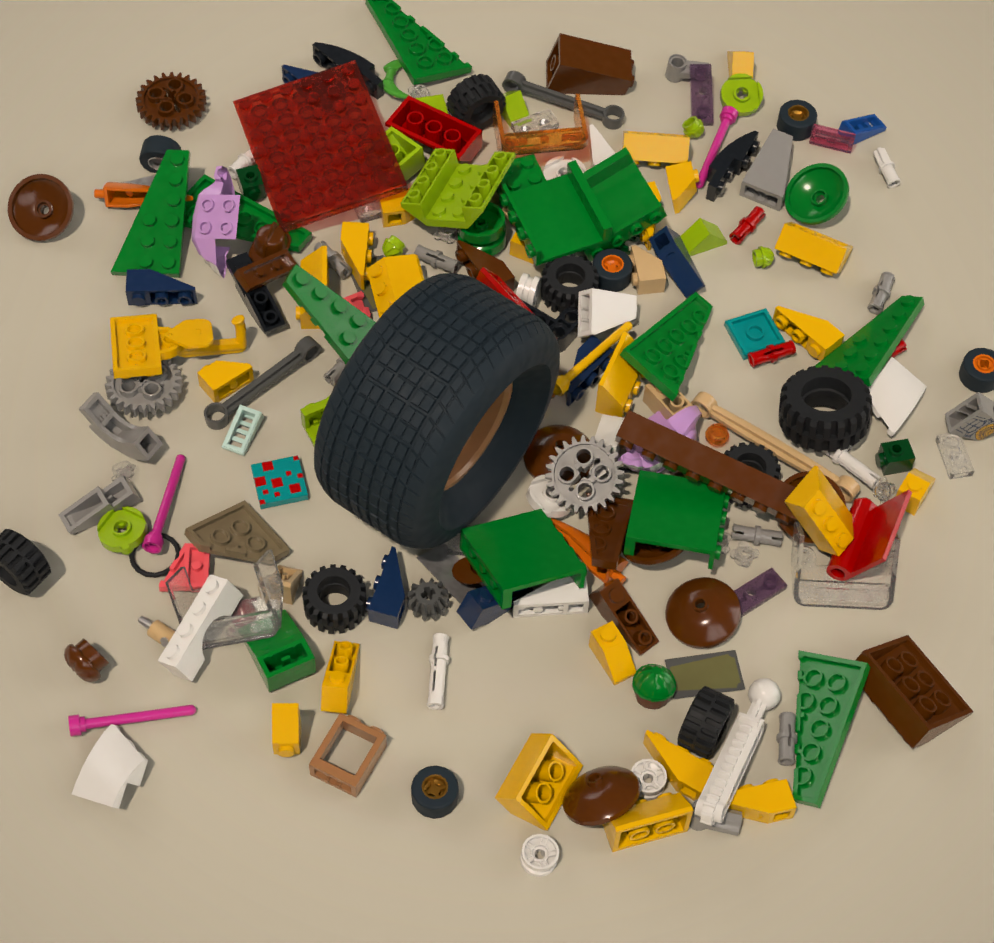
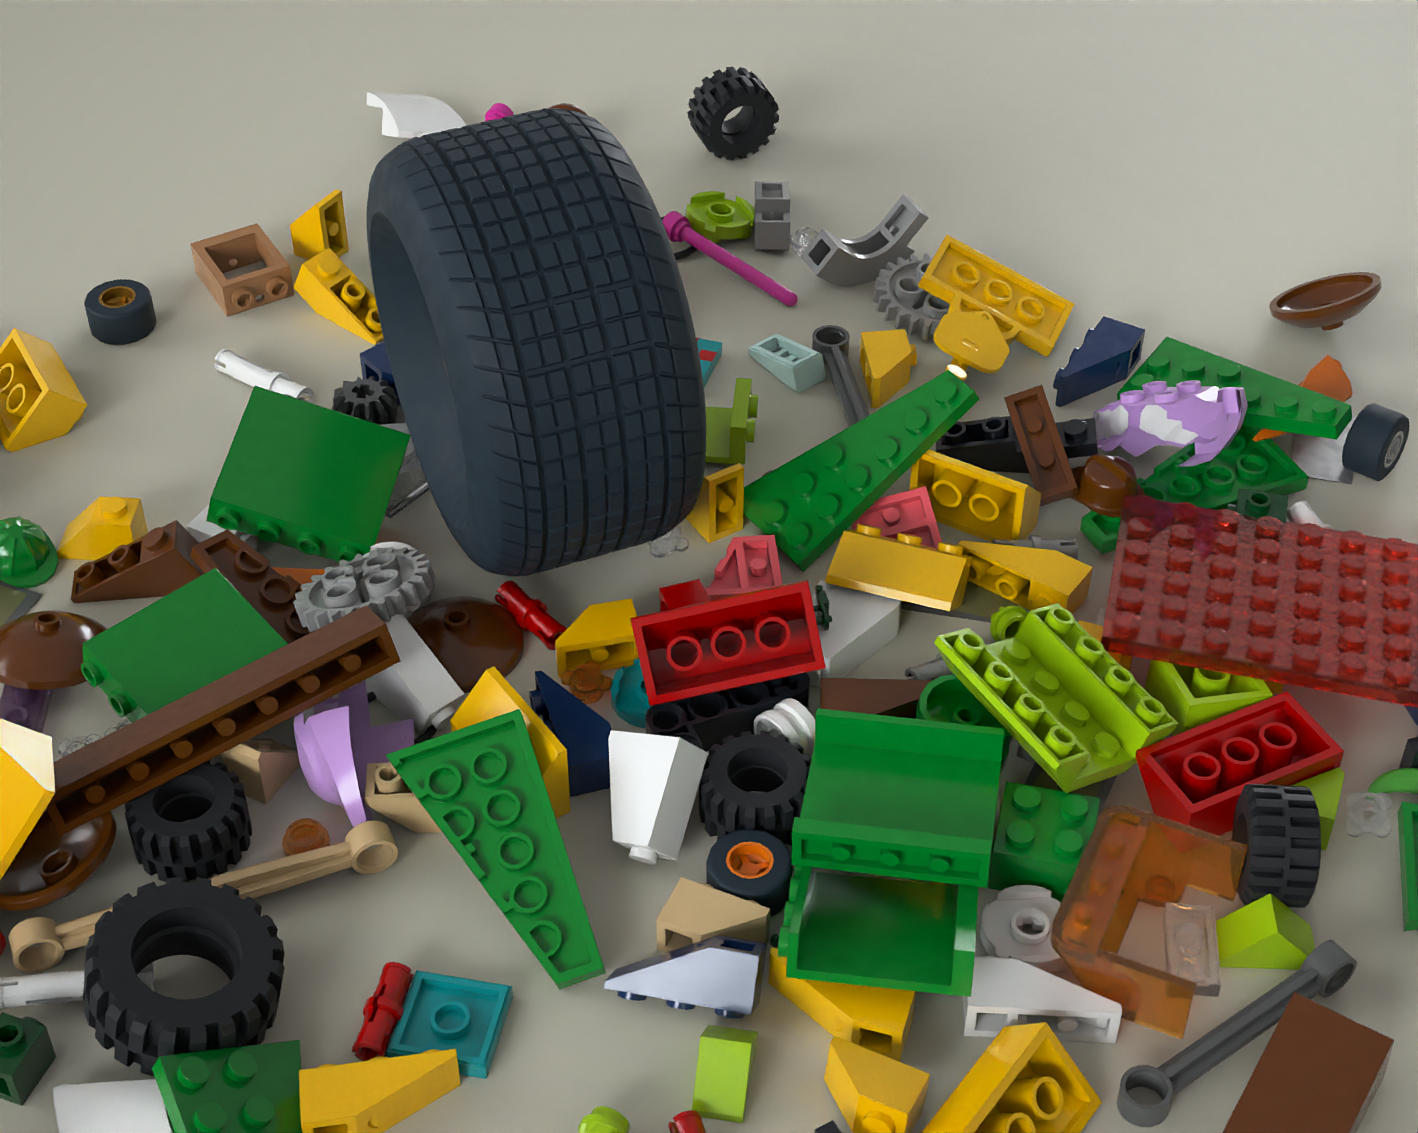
camera: 125 degrees right, 15 degrees down
(563, 381) = (556, 661): yellow piece -> none

